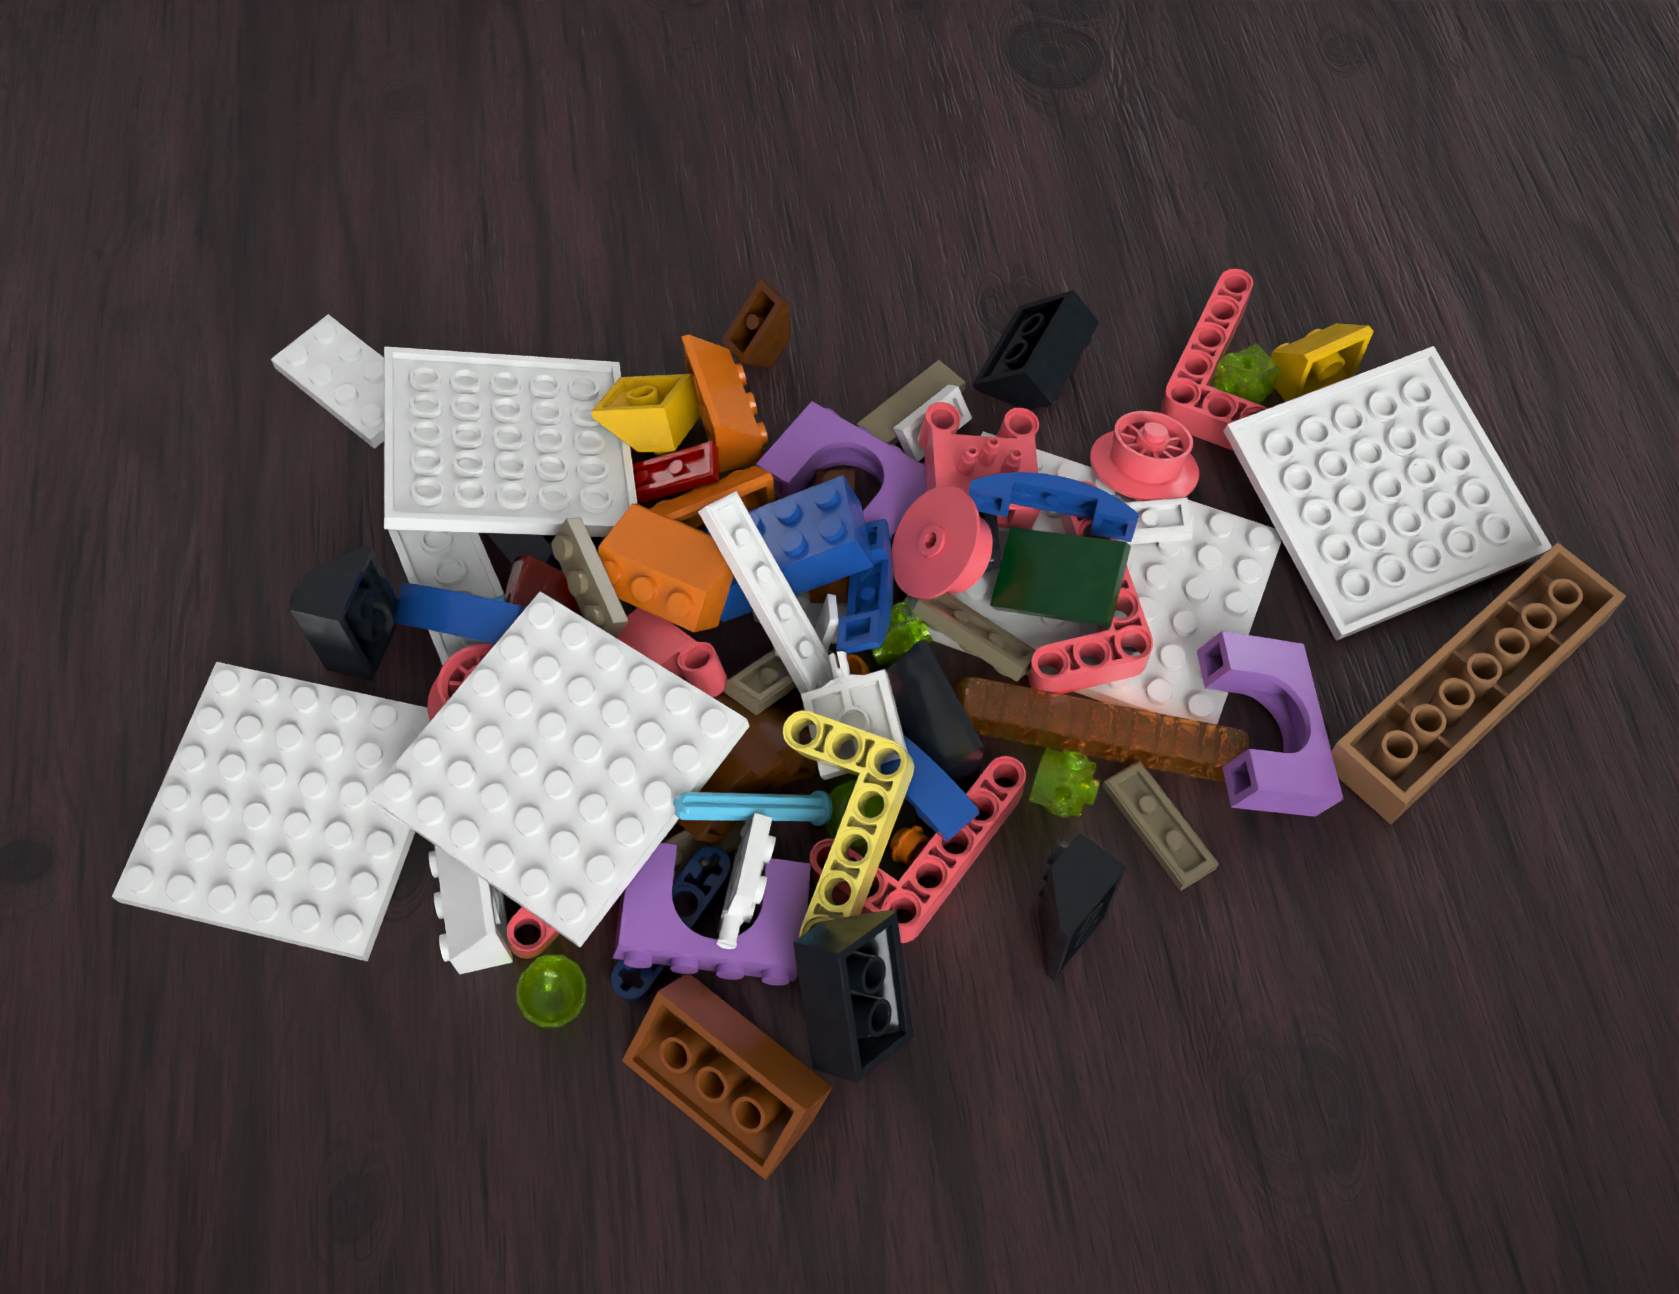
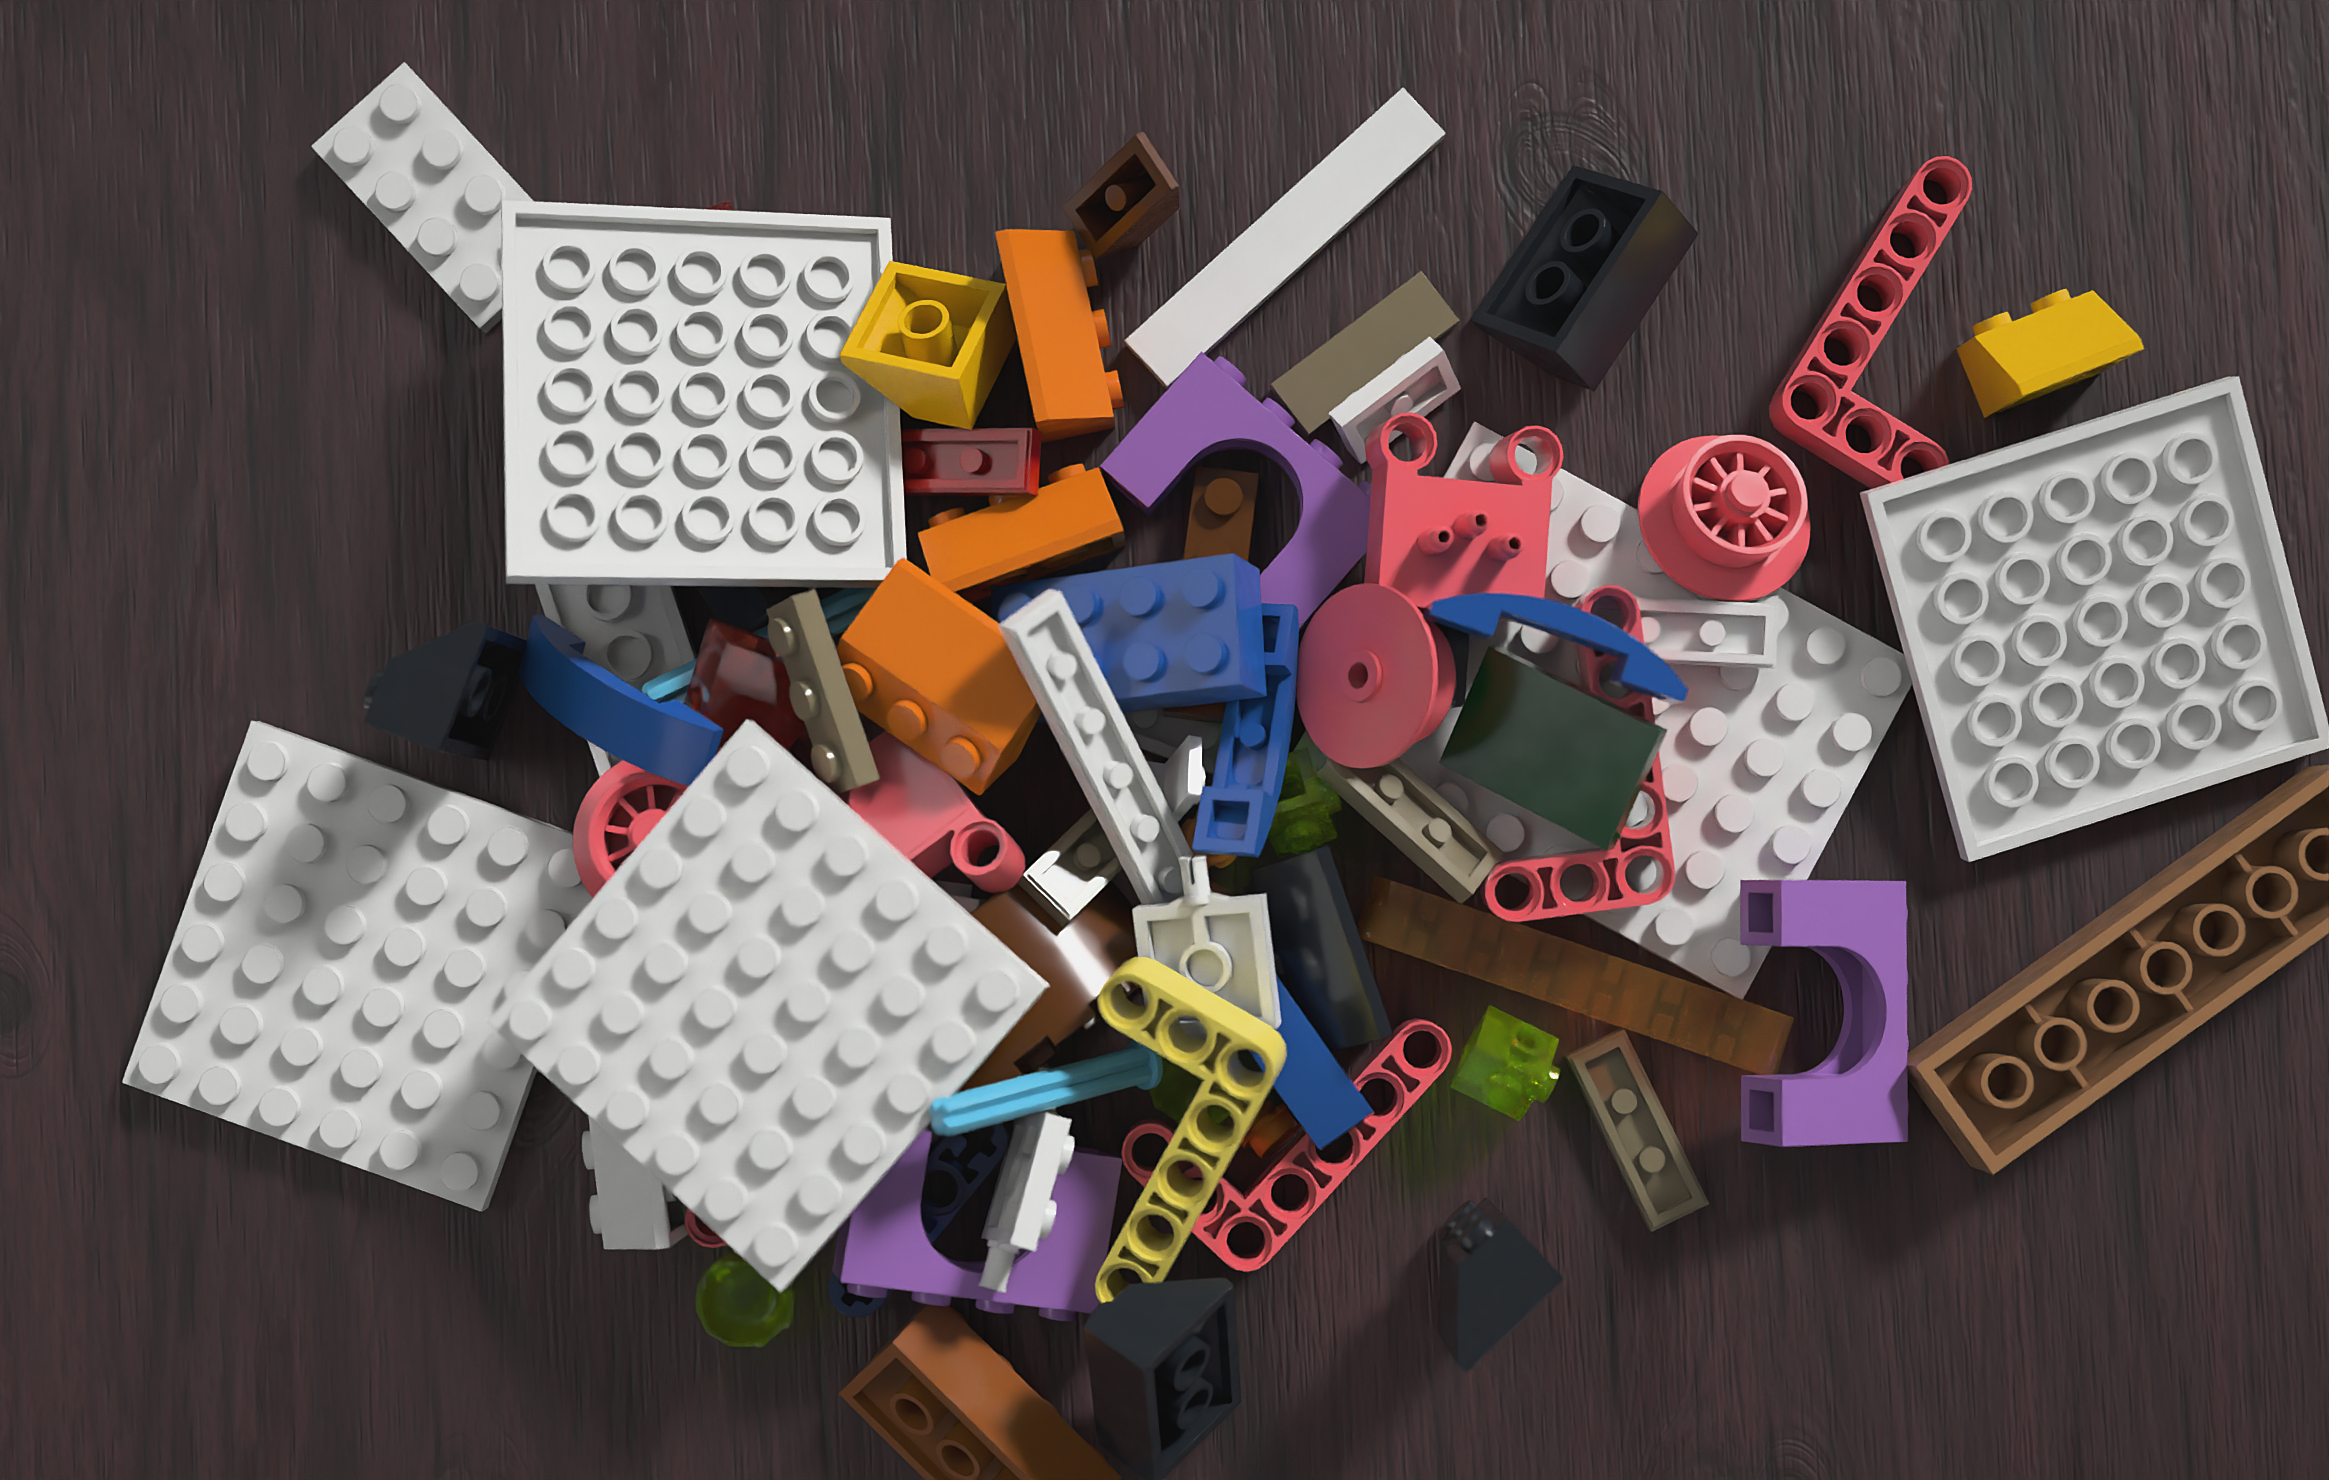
camera: 10 degrees right, 25 degrees up
(857, 351) = (1285, 237): none -> white tile
(1247, 374) = (1918, 373): clear neon green brick -> none

